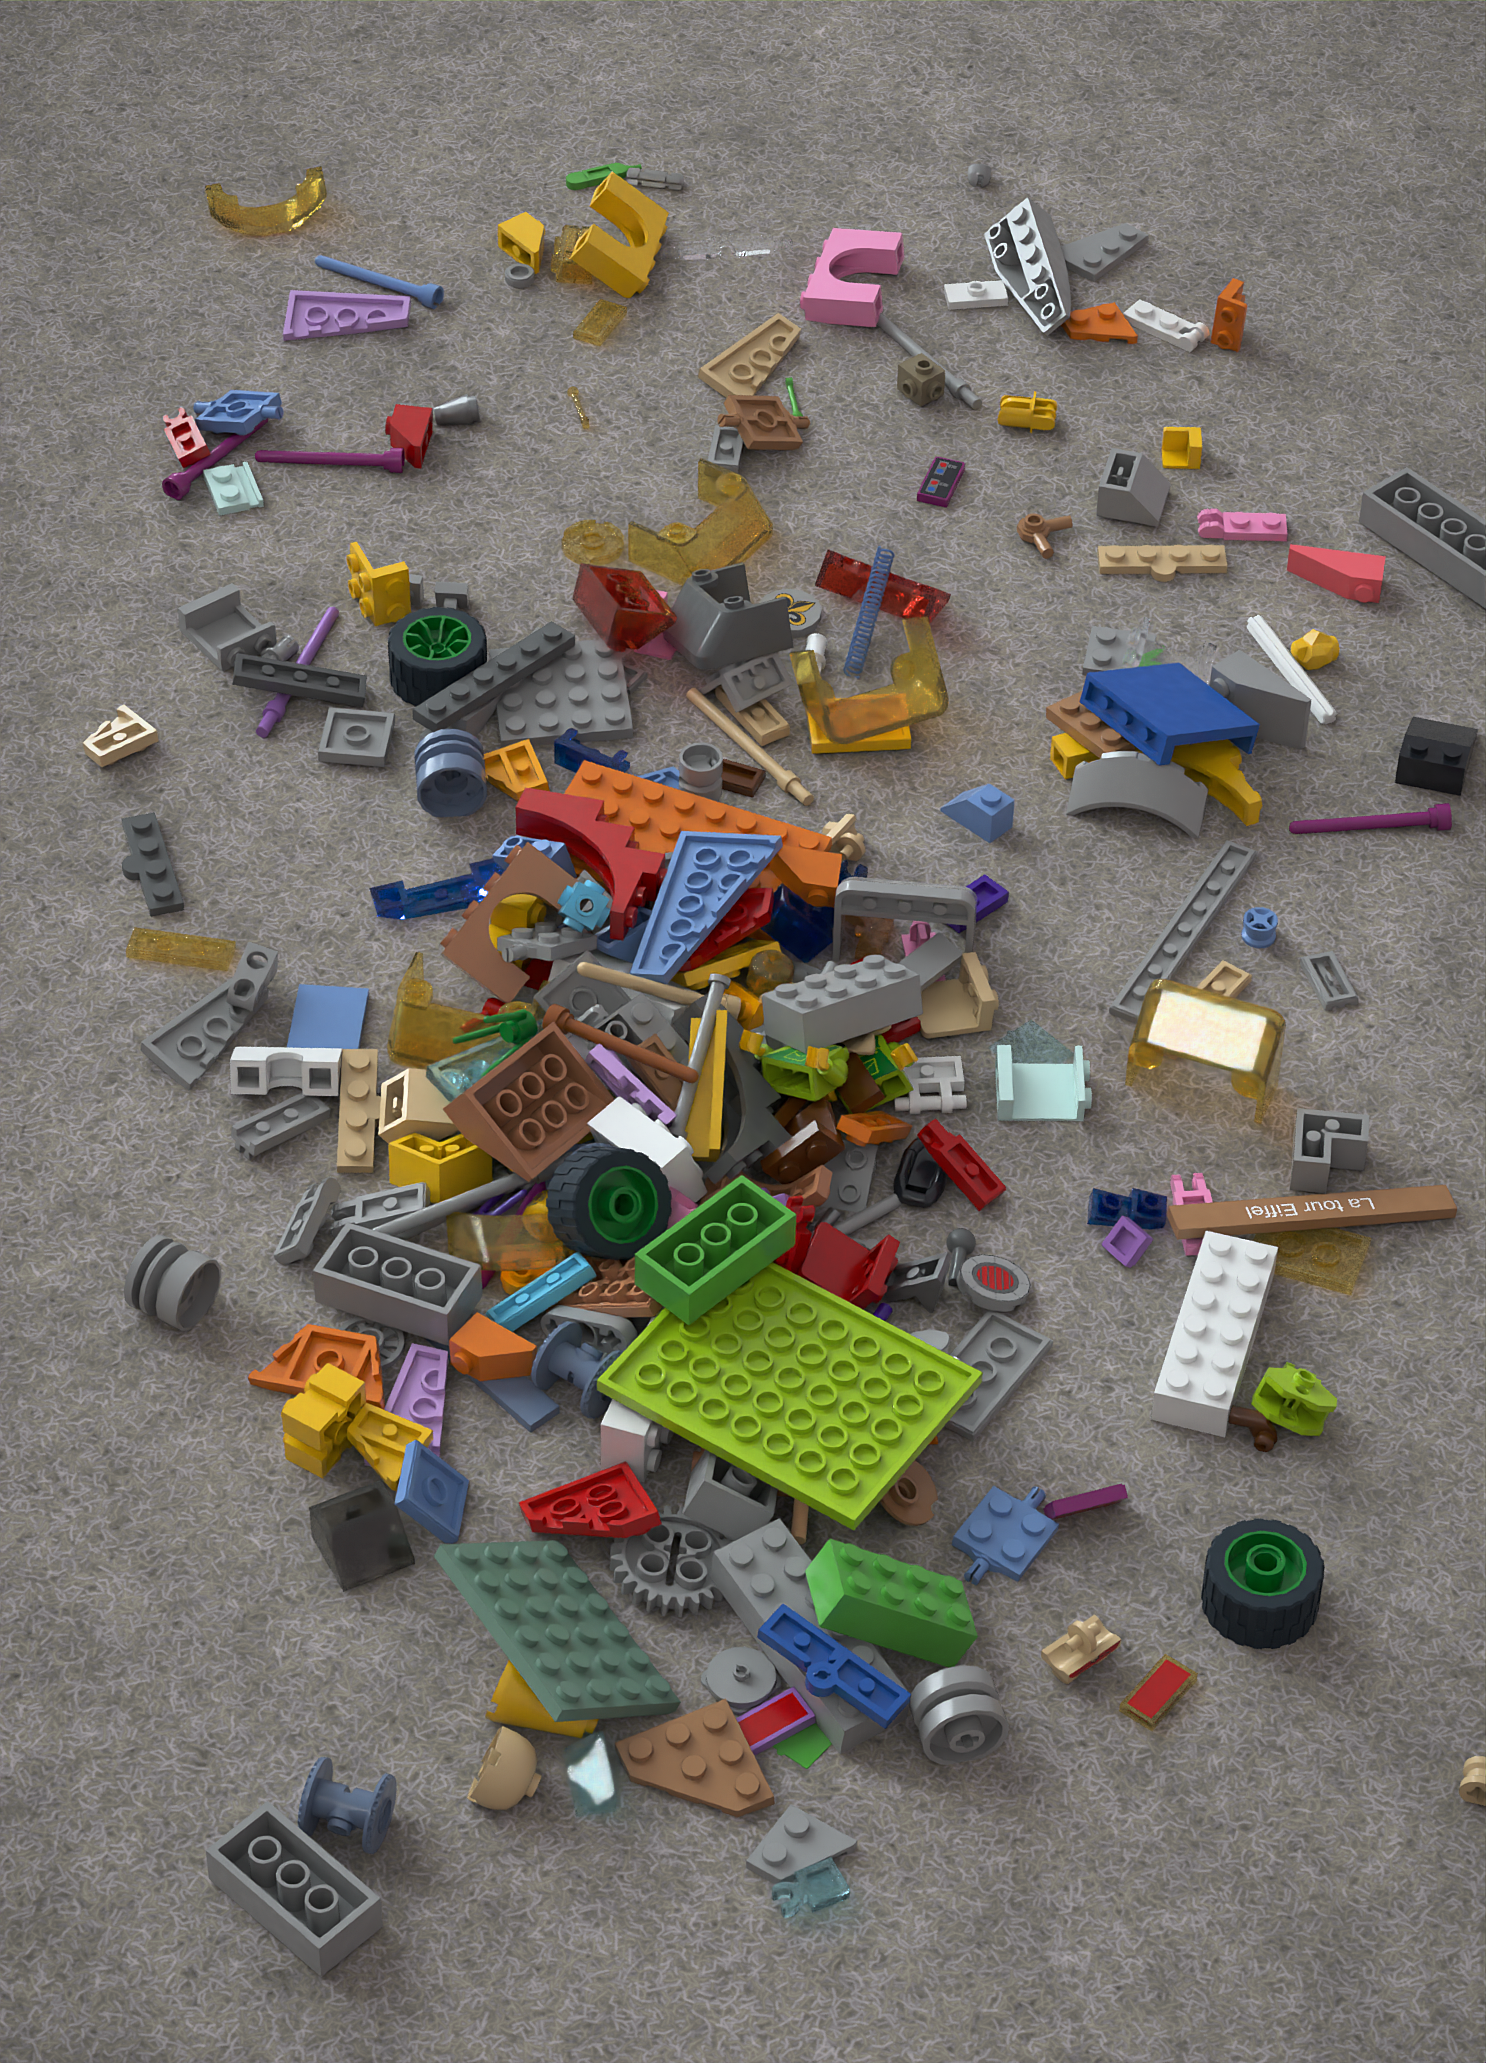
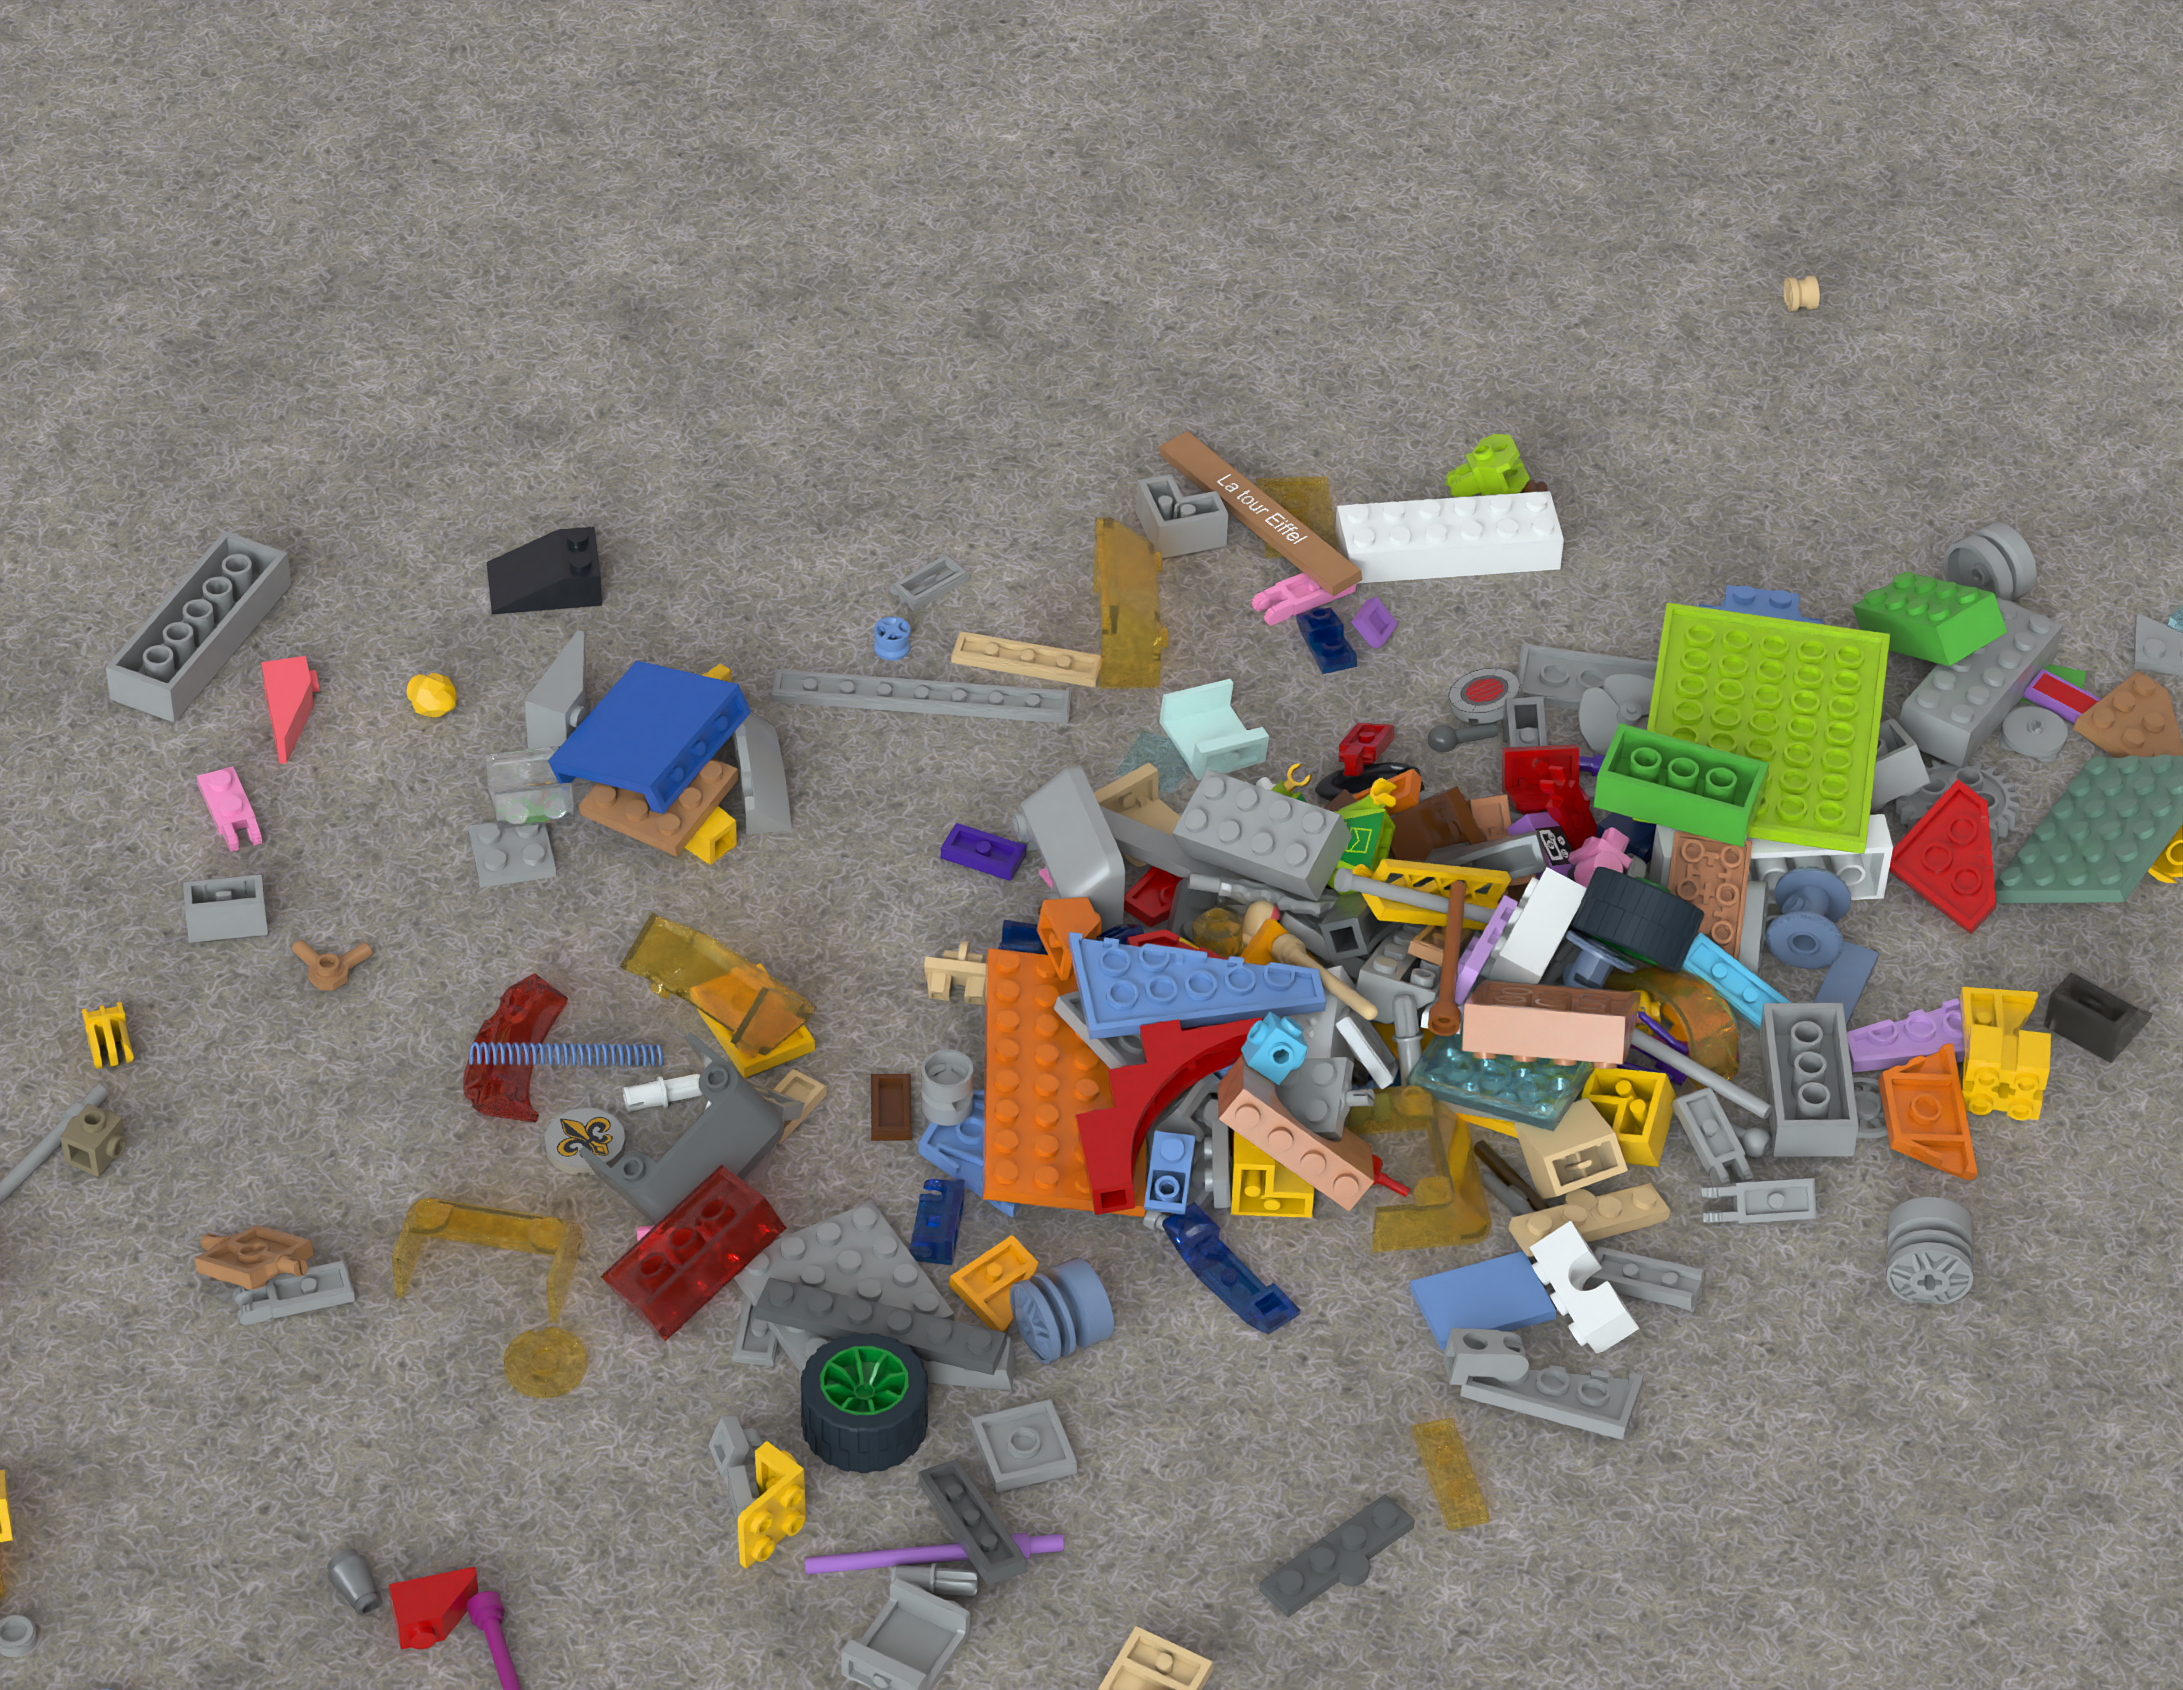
camera: 115 degrees left, 0 degrees up
(431, 1492) = (2020, 973): medium blue tile -> none
(490, 1351) = (1836, 983): orange slope -> none
(515, 1028) = (1452, 1070): green plant -> none
(574, 392) = (248, 1489): clear yellow hinge -> none
(600, 322) = (85, 1512): clear yellow tile -> none
(752, 359) = (124, 1330): tan wing -> none
(785, 778) = (873, 1053): tan bar -> none
(789, 383) = (135, 1279): bright green hinge -> none
(833, 1667) = (2030, 625): blue hinge -> none
(941, 481) = (270, 1082): tile -> none
(982, 811) = (840, 880): medium blue slope -> none
(1080, 1649) = (1855, 529): tan hips -> none
(1086, 1501) = (1696, 571): magenta tile -> none
(1158, 1692) = (1849, 489): tile -> none
(1162, 560) = (326, 859): tan hinge -> none
(1181, 447) = (116, 883): yellow panel -> none
(1262, 1583) = (1711, 439): black wheel -> none
(1290, 668) = (465, 714): white axle -> none
(1437, 817) = (649, 556): magenta piece -> none

